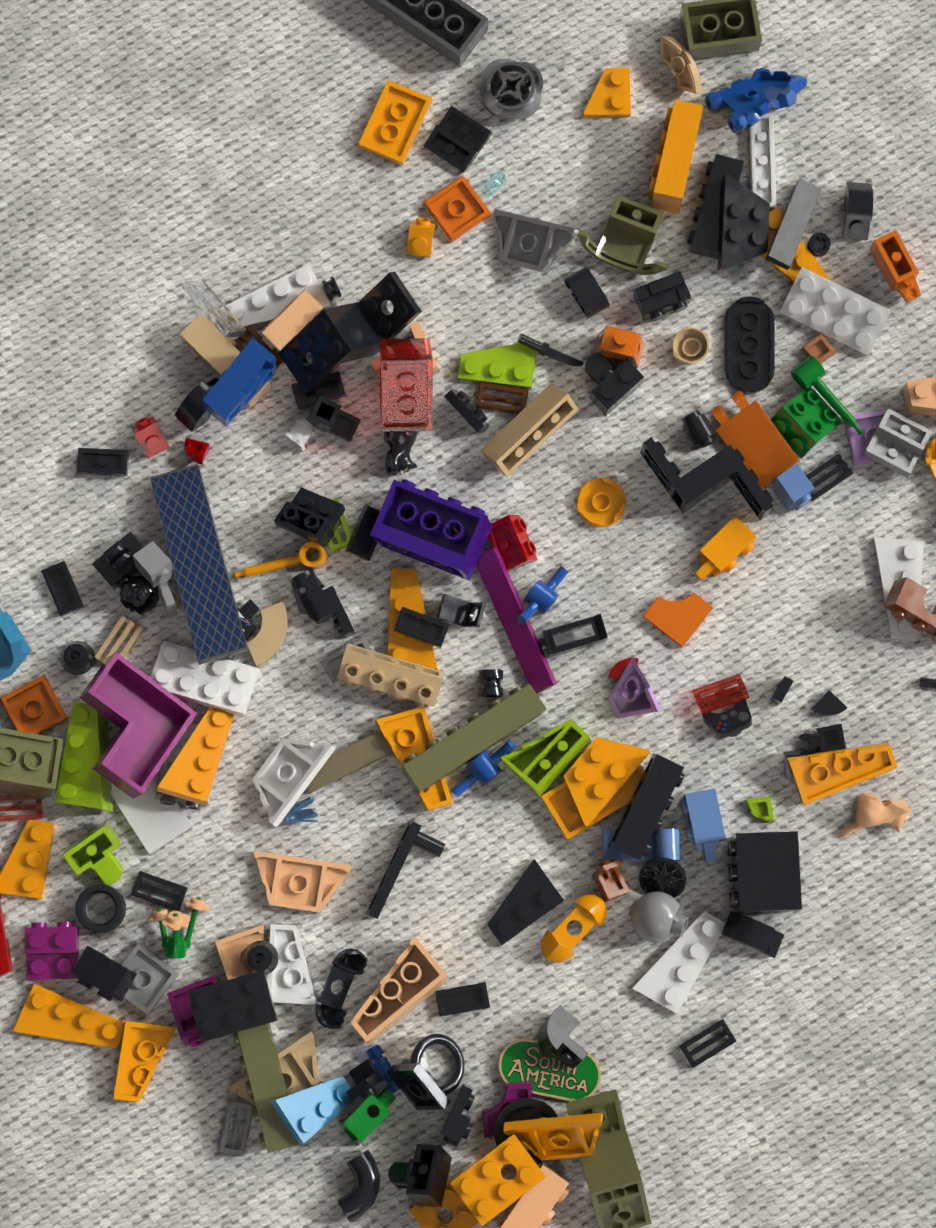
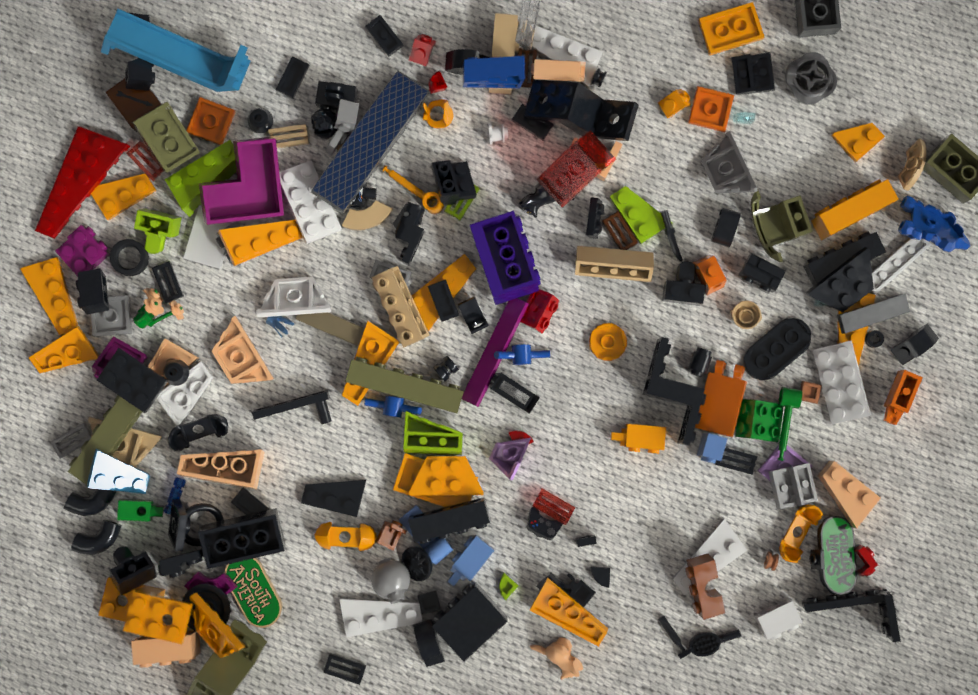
camera: 50 degrees right, 5 degrees up
(241, 472) = (447, 116): none -> light orange piece
(320, 1162) = (89, 505): none -> black cylinder
(330, 418) = (522, 145): black brick -> none
(361, 542) = (463, 222): black tile -> none
(365, 1078) = (160, 490): black bracket -> none
(503, 1027) = (236, 549): none -> black brick
(555, 1038) = (271, 579): brick -> none
(678, 618) = (577, 445): orange tile -> none
(711, 900) = (429, 602): none -> black tile

